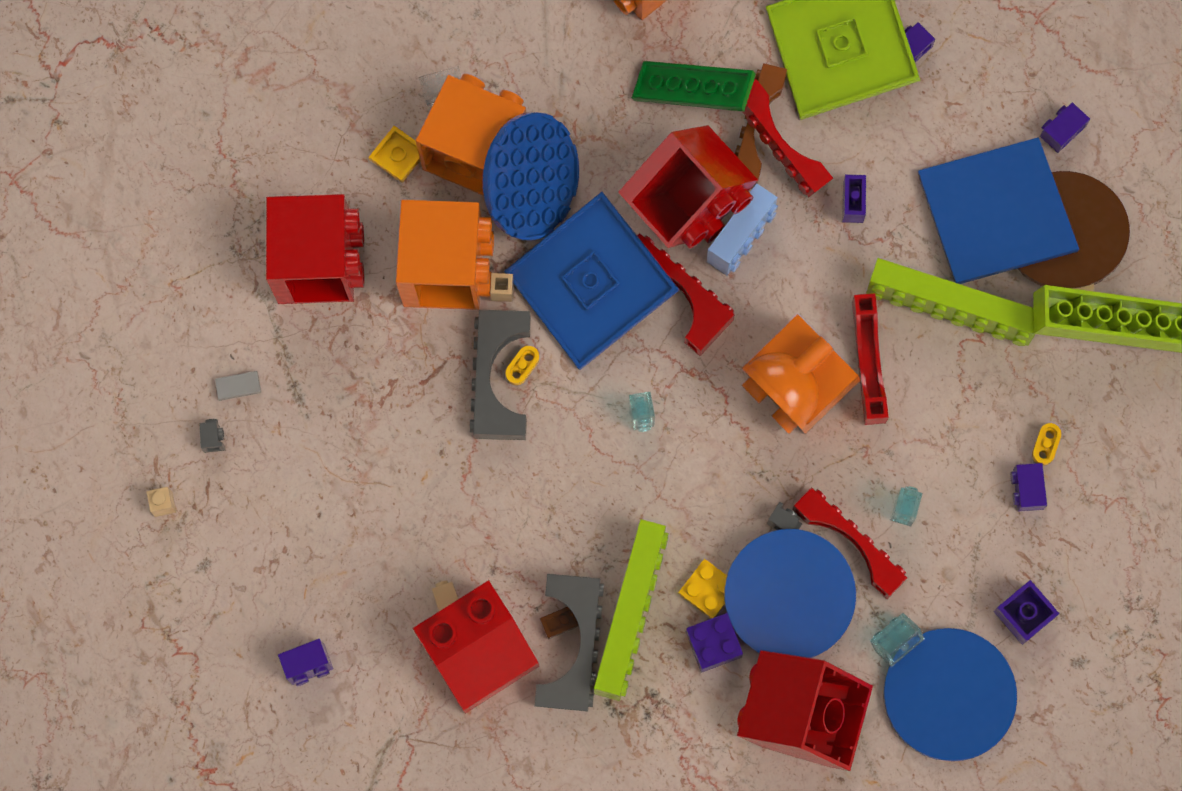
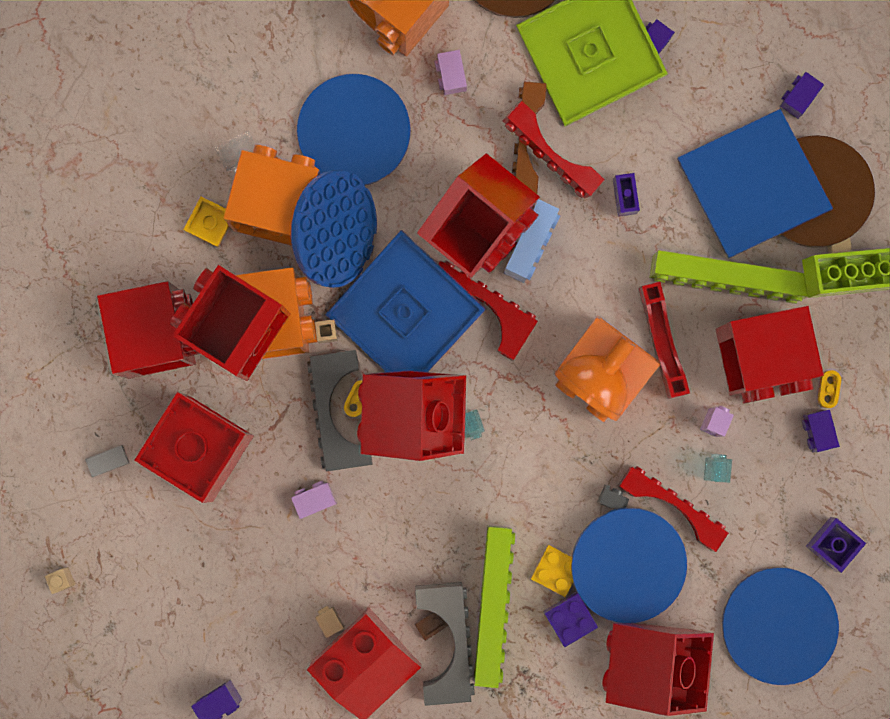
camera: 20 degrees left, 10 degrees up
(211, 436) = (92, 512): dark grey brick -> none
(337, 377) = (194, 448): none -> red piece
(403, 239) = (229, 322): none -> red piece
(454, 464) = (313, 500): none -> lavender brick
(576, 80) = (354, 127): none -> blue tile
(579, 380) = (412, 415): none -> red piece
(687, 42) = (451, 72): none -> lavender brick
(693, 85) = (466, 115): green tile -> none
(897, 639) = (727, 588): clear light blue brick -> none
(913, 454) = (717, 421): none -> lavender brick
(982, 386) = (770, 353): none -> red piece

